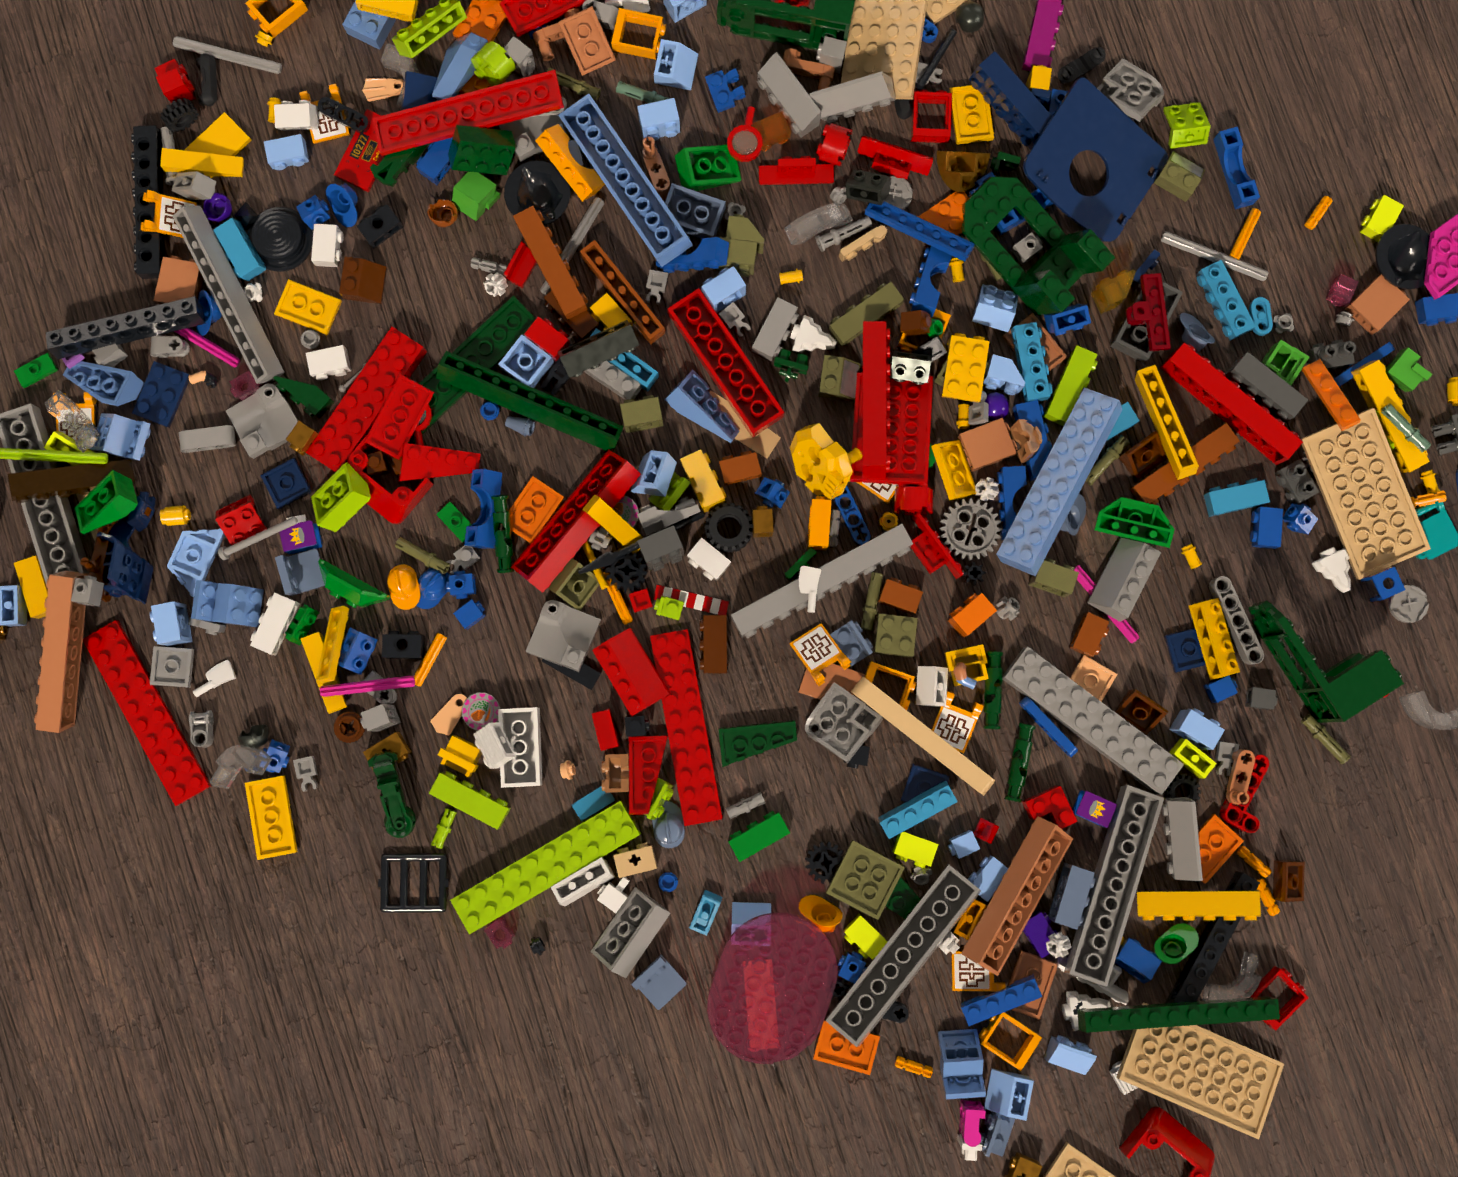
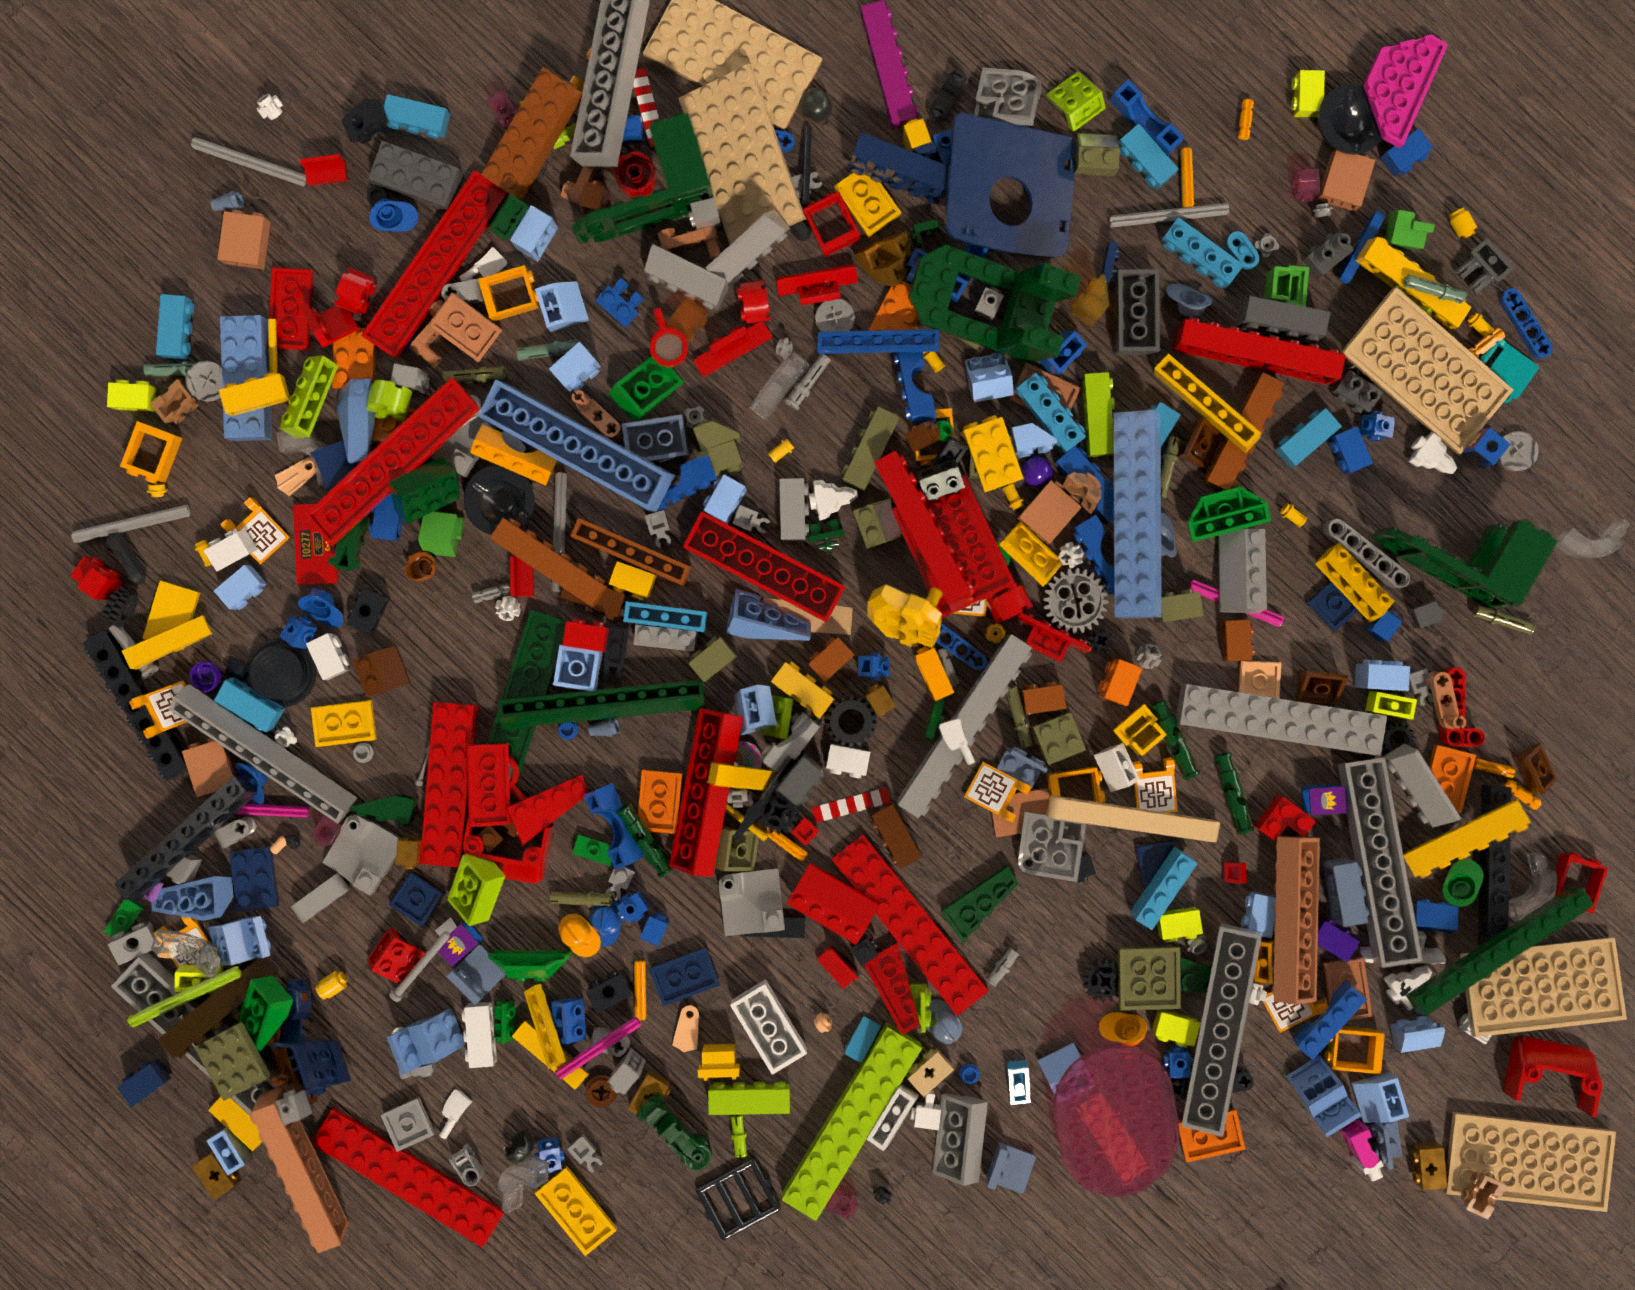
camera: 20 degrees left, 5 degrees up
(21, 387) = (124, 951): none -> light grey brick
(58, 529) = (232, 1061): none -> olive plate
(170, 624) = (385, 1088): light blue brick -> none
(194, 186) = (172, 669): light grey brick -> none
(194, 556) = (371, 1012): light blue wing -> none
(328, 362) = (392, 766): white brick -> none
(340, 107) = (260, 529): black beam -> none
(472, 667) = (684, 976): none -> dark blue plate
(480, 710) = (713, 1012): tile -> none
(494, 745) = (745, 1041): white brick -> none
(598, 348) = (639, 622): pearl dark grey brick -> none
(617, 773) = (870, 1003): medium nougat cylinder -> none
(669, 607) = (835, 823): lime bracket -> none
(758, 836) = (1030, 989): green brick -> none
(864, 242) = (832, 381): tan hinge -> none
(867, 187) = (807, 326): pearl dark grey brick -> none
(913, 1067) = (1280, 1119): light orange axle -> none
(961, 676) = (1141, 747): arm -> none
(963, 844) = (1221, 896): light blue brick -> none
(978, 411) = (1026, 487): light grey plate -> none
(1048, 726) = (1243, 746): blue beam -> none
(1058, 945) = (1357, 944): white gear -> none
(1151, 312) = (1140, 306): dark red plate -> none
(1220, 199) = (1147, 157): none -> dark azure brick
(1331, 395) = (1349, 295): orange plate -> none

